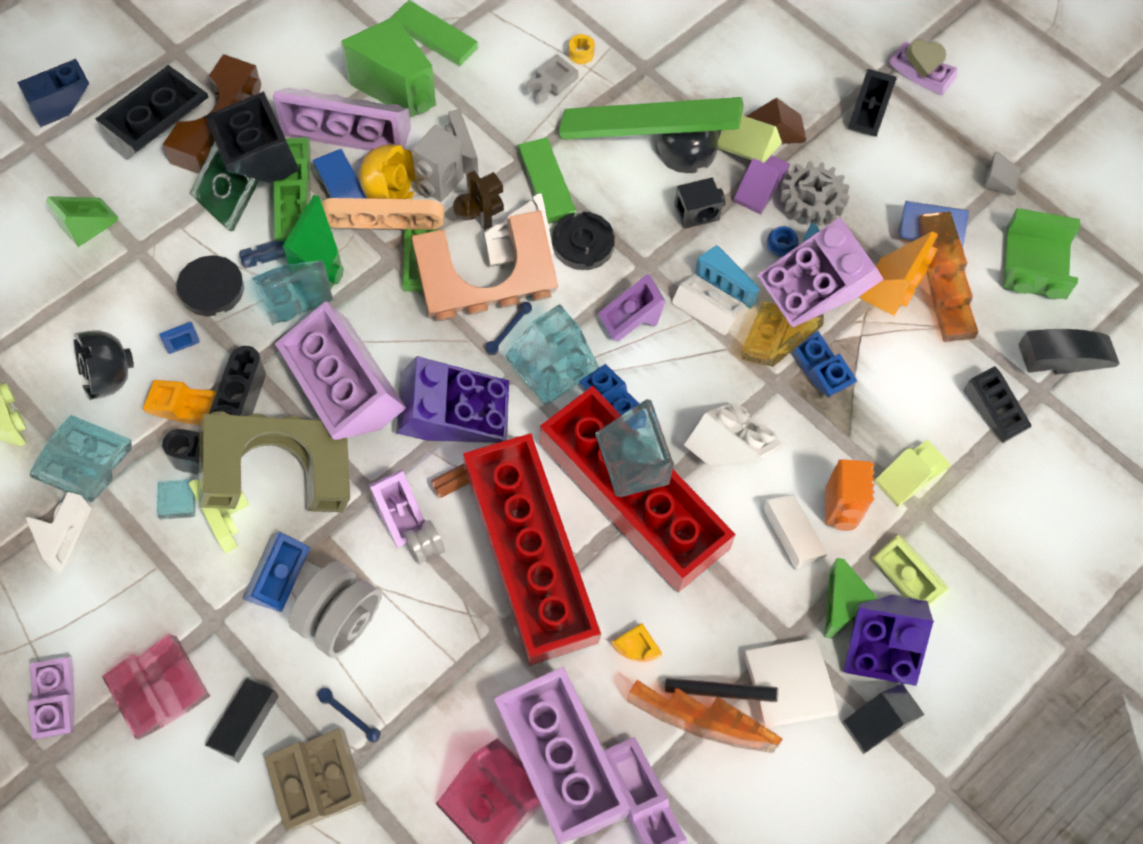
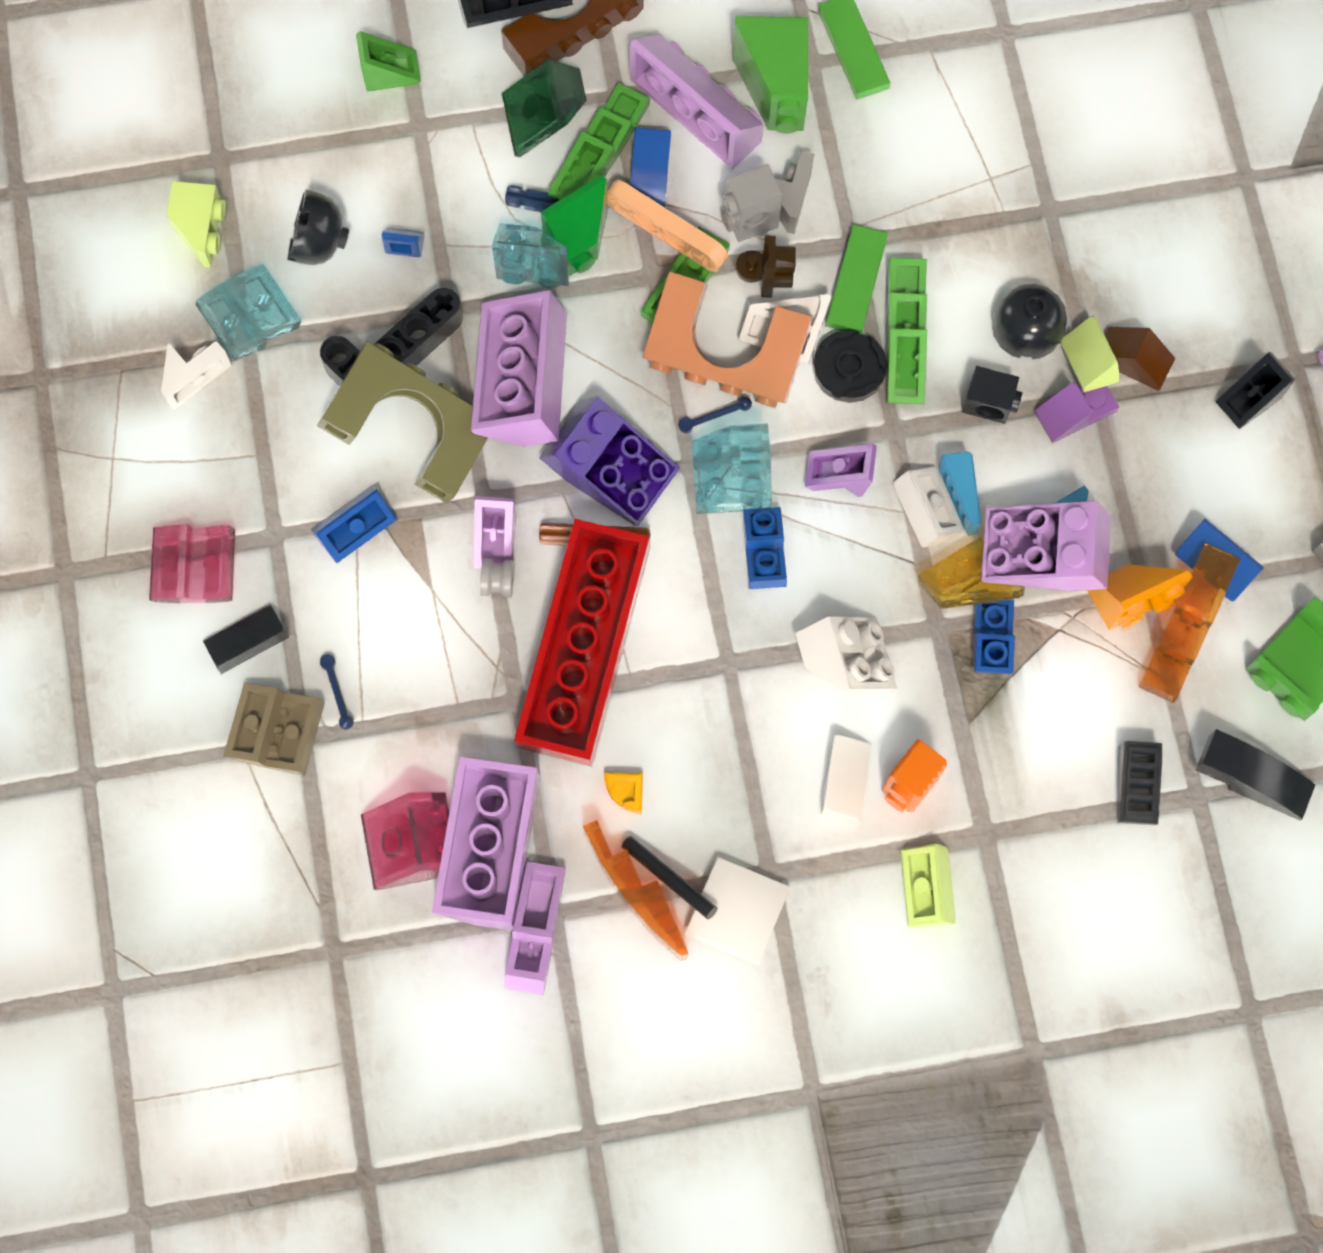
camera: 35 degrees right, 10 degrees up
(53, 698) = (104, 520): lavender slope -> none
(175, 500) = (307, 401): clear light blue tile -> none
(178, 402) = (364, 308): light orange slope -> none
(210, 285) = (462, 204): black tile -> none
(220, 520) = (331, 449): yellowish green slope -> none
(252, 140) = (585, 77): black slope -> none
(334, 609) = (377, 591): light grey wheel -> none
(387, 173) = (696, 187): yellow cylinder -> none
(551, 76) = (942, 167): light grey plate -> none
(581, 41) = (999, 141): yellow bush -> none
(607, 194) = (906, 331): none -> bright green slope
(636, 451) = (731, 613): clear light blue slope -> none
(652, 118) = (1000, 278): bright green tile -> none
(664, 523) = (719, 646): red brick -> none
(785, 235) = (1052, 477): blue plate -> none
(814, 193) = (1102, 446): light grey gear -> none
(844, 595) = (844, 872): bright green slope -> none
(882, 717) = (801, 995): black slope -> none
(889, 639) = (854, 930): dark purple slope -> none
(912, 472) = (1002, 794): yellowish green slope -> none

